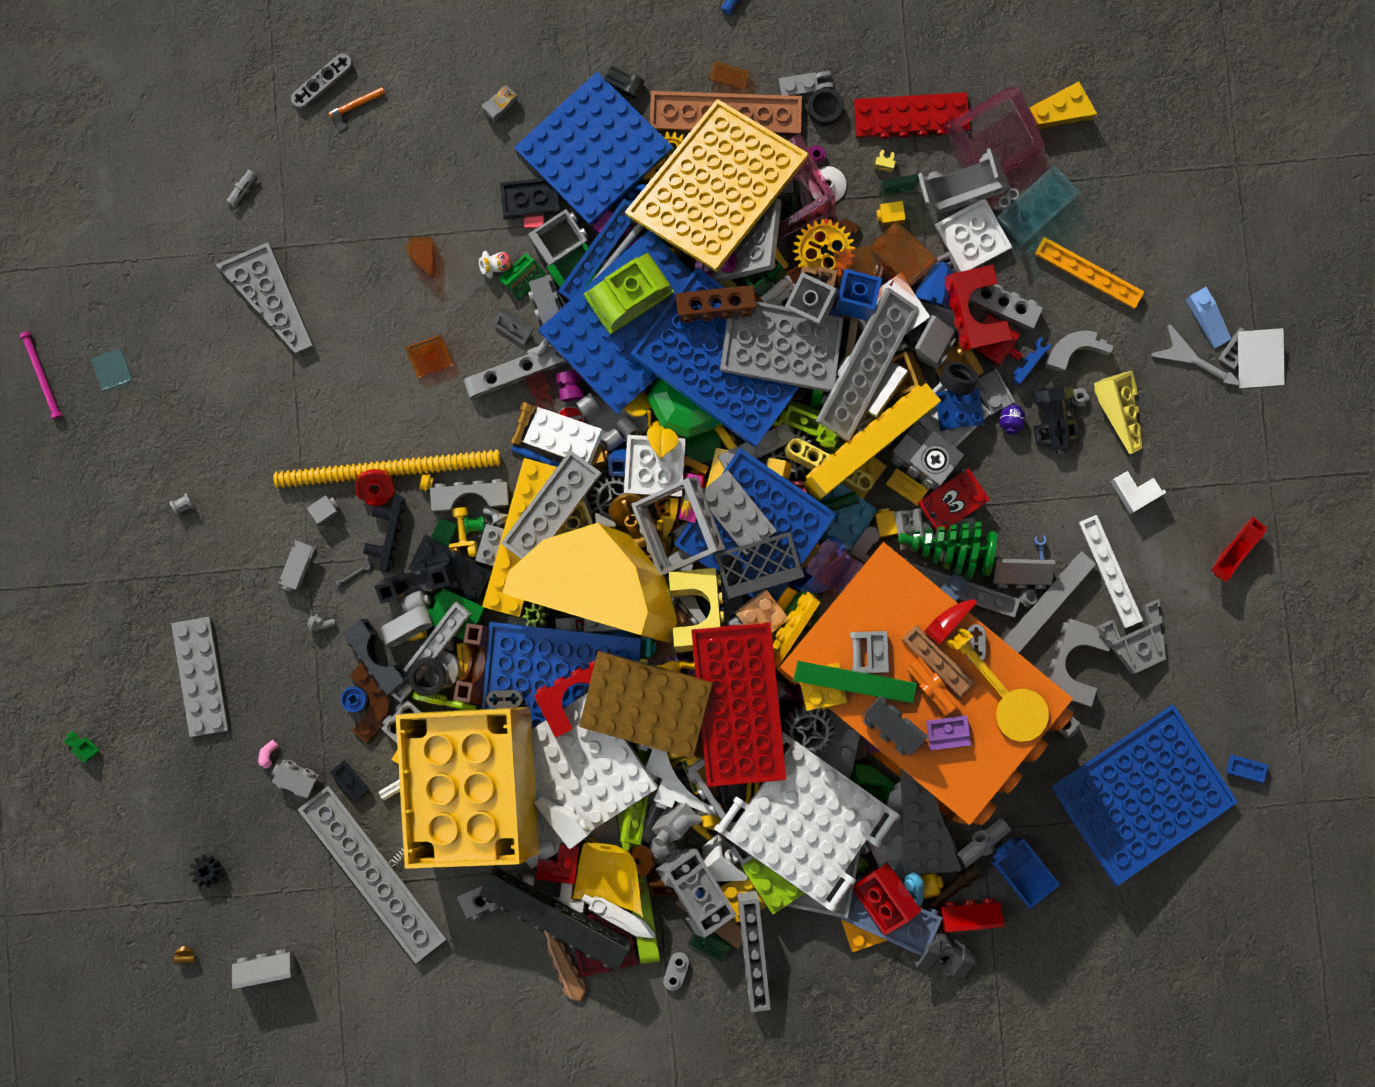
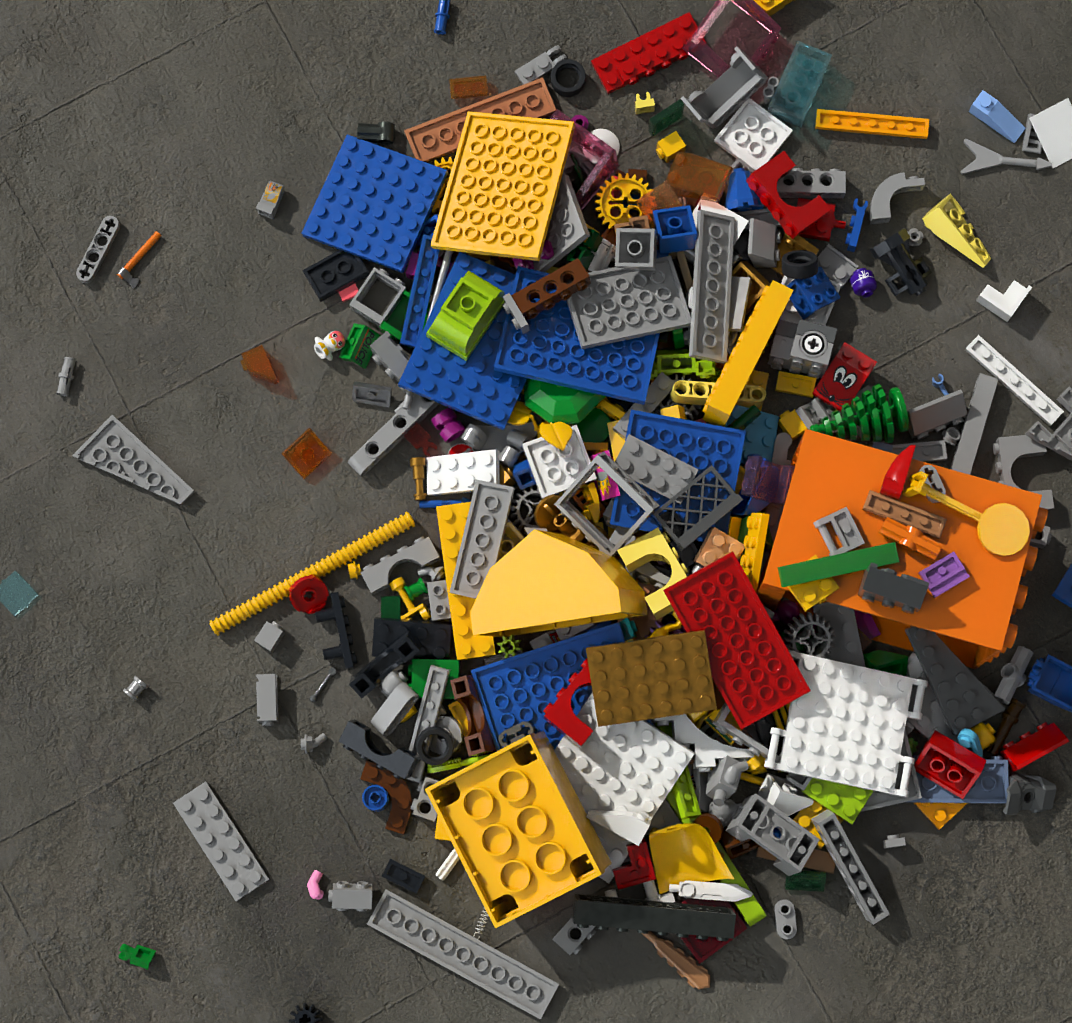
camera: 20 degrees left, 5 degrees down
(671, 304) = (511, 307): none -> light grey plate
(805, 945) = (894, 841): none -> light grey plate

